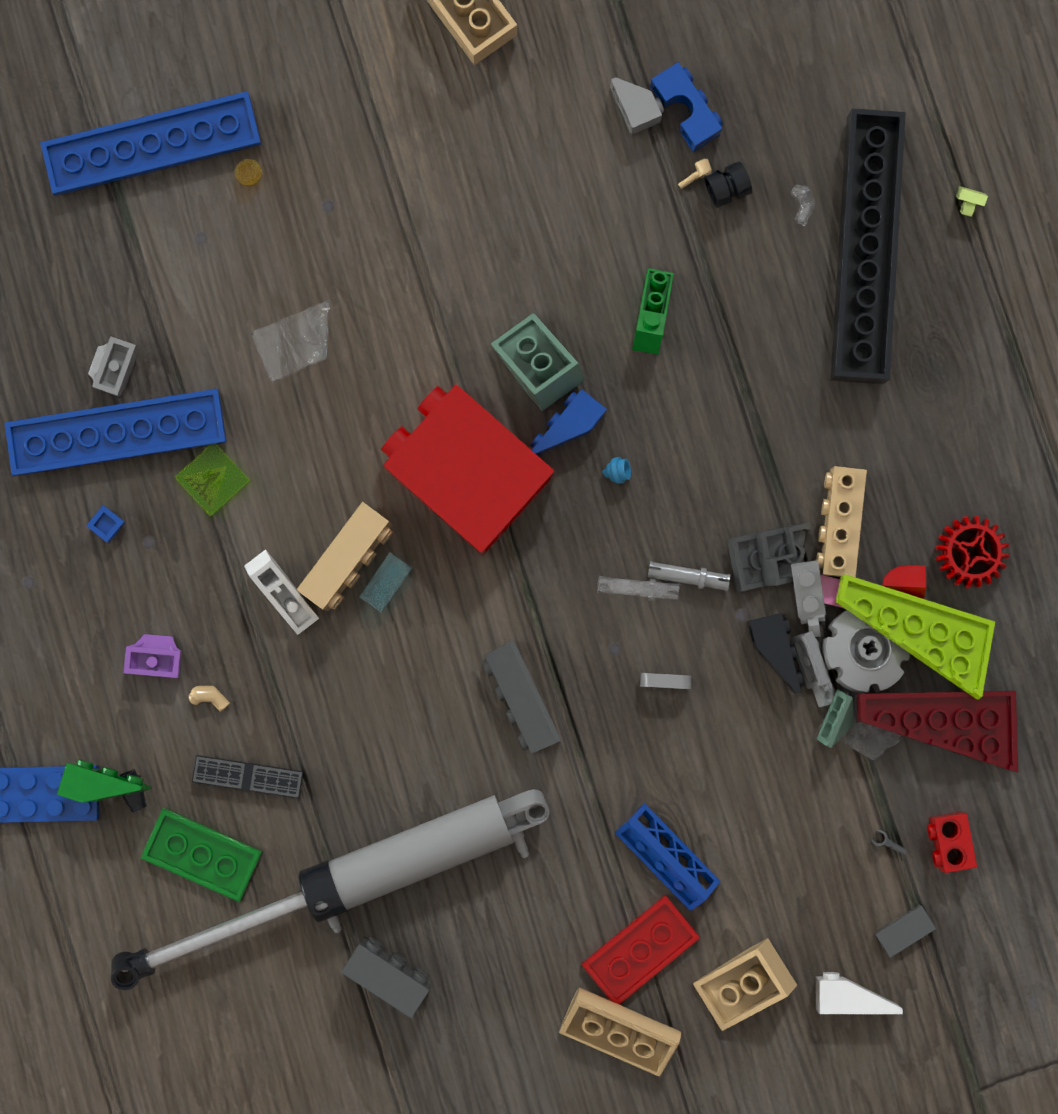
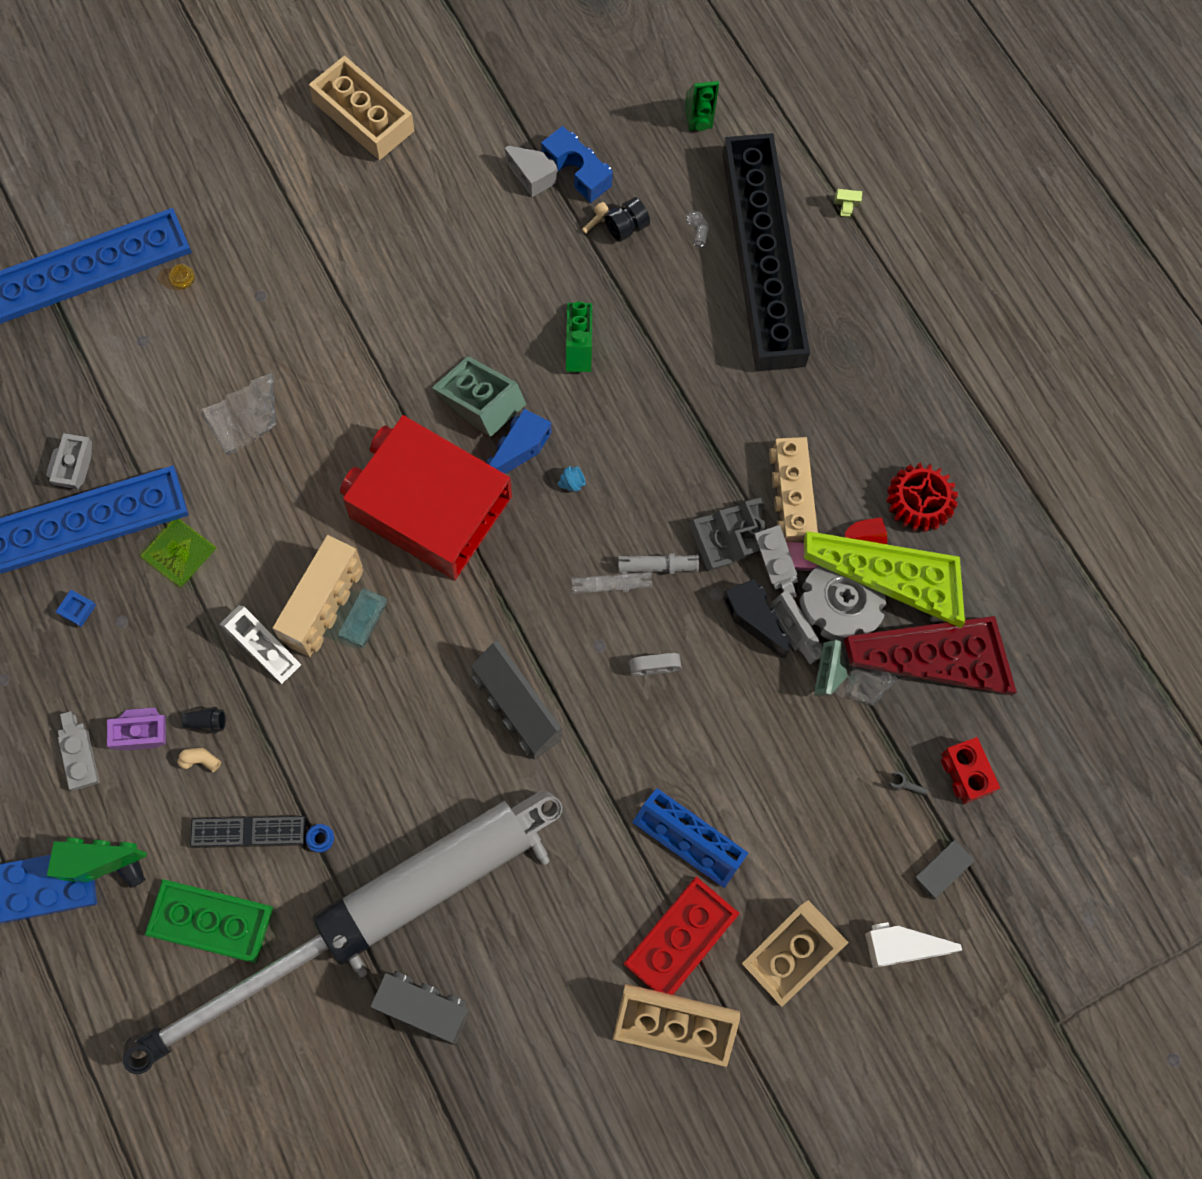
camera: 15 degrees left, 15 degrees down
(94, 670) = (77, 753): none -> light grey hinge
(219, 660) = (205, 720): none -> black cone
(306, 798) = (311, 836): none -> blue plate
(834, 61) = (701, 105): none -> green slope

